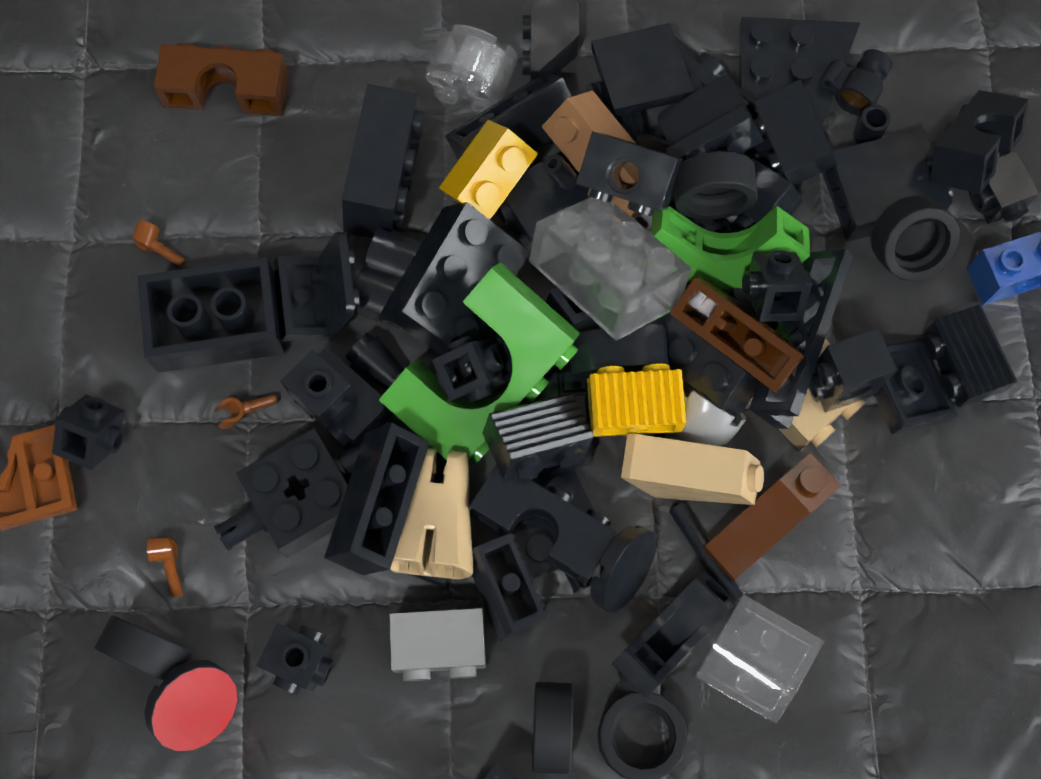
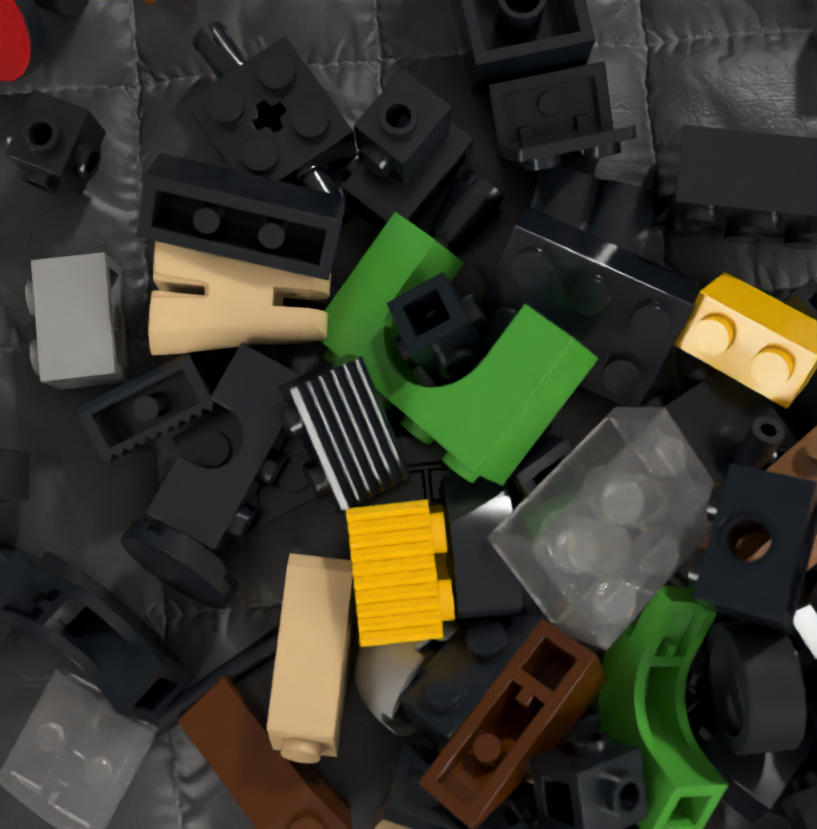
camera: 90 degrees right, 10 degrees up
(239, 408) = (389, 44): dark orange hand -> none

